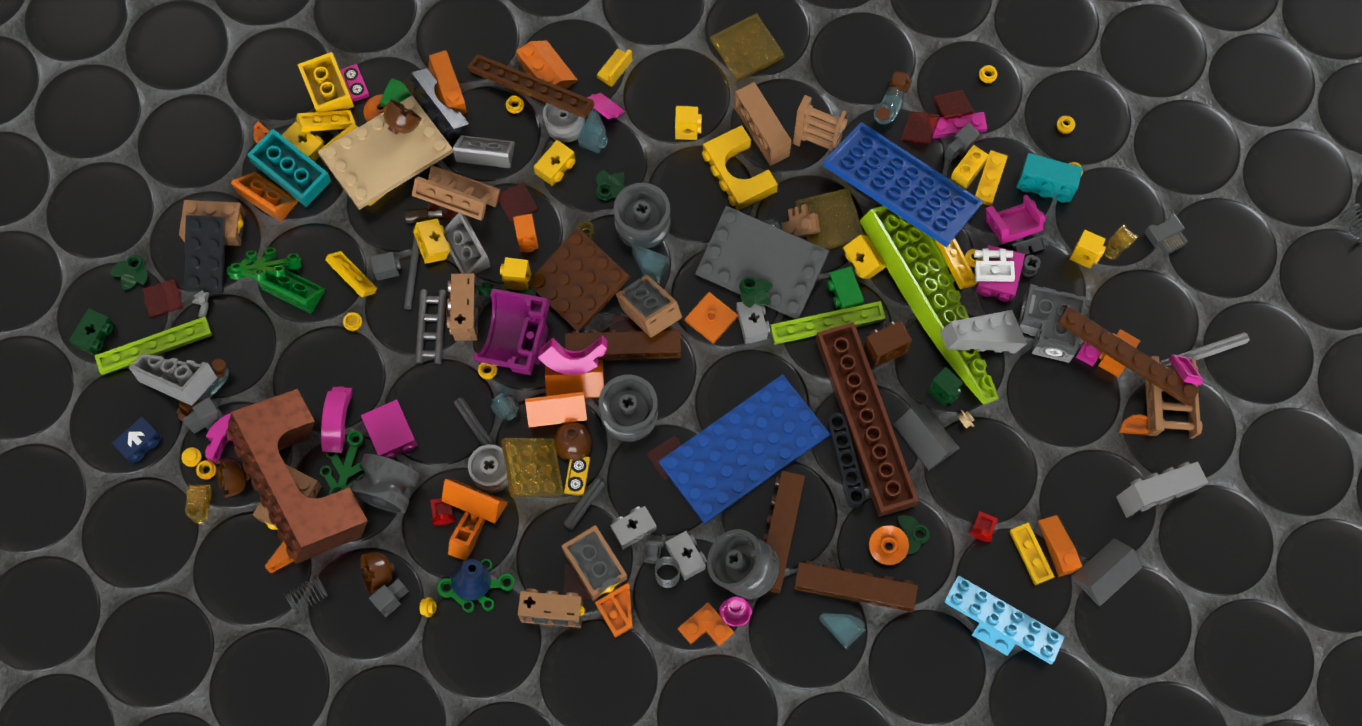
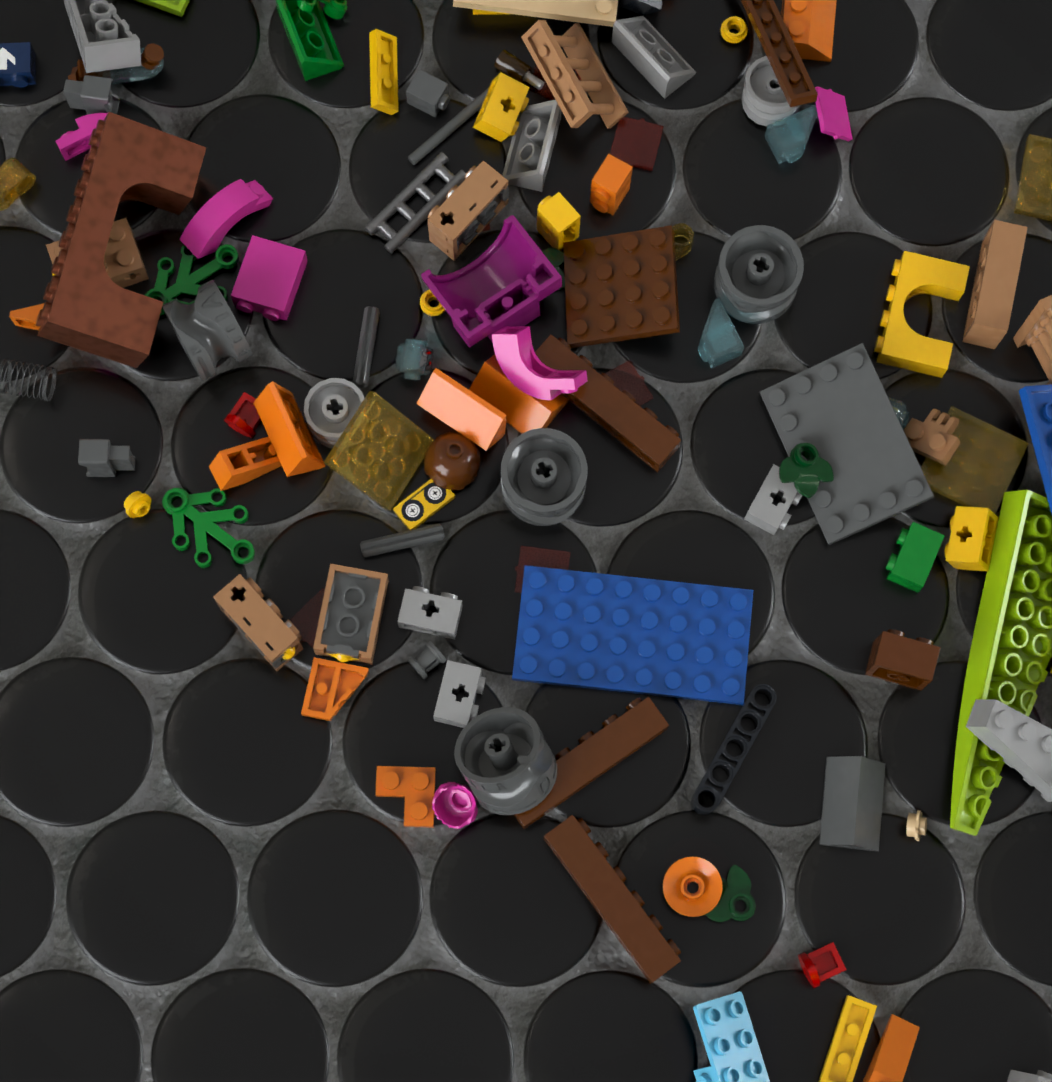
camera: 40 degrees right, 5 degrees up
(191, 457) = (44, 130): yellow plate -> none
(206, 464) = (44, 150): yellow plate -> none
(231, 476) = (61, 186): reddish brown cylinder -> none
(352, 321) = (339, 126): yellow plate -> none
(377, 570) = (119, 419): reddish brown cylinder -> none
(471, 580) = (206, 516): dark blue cone -> none
(486, 288) = (514, 208): dark green plate -> none
(555, 154) = (703, 132): yellow brick -> none
(613, 184) = (760, 210): dark green plate -> none
(615, 67) = (887, 79): yellow panel -> none
(649, 305) = (670, 382): piece -> none
(667, 561) = (411, 680): dark grey piece -> none
(687, 122) = (908, 211): yellow brick -> none
(711, 318) = (732, 457): orange plate -> none
(810, 325) = (859, 577): lime plate -> none
(843, 627) = (557, 931): clear light blue slope -> none
(866, 419) = (799, 724): copper brick -> none
(945, 387) = (924, 768): dark green brick -> none

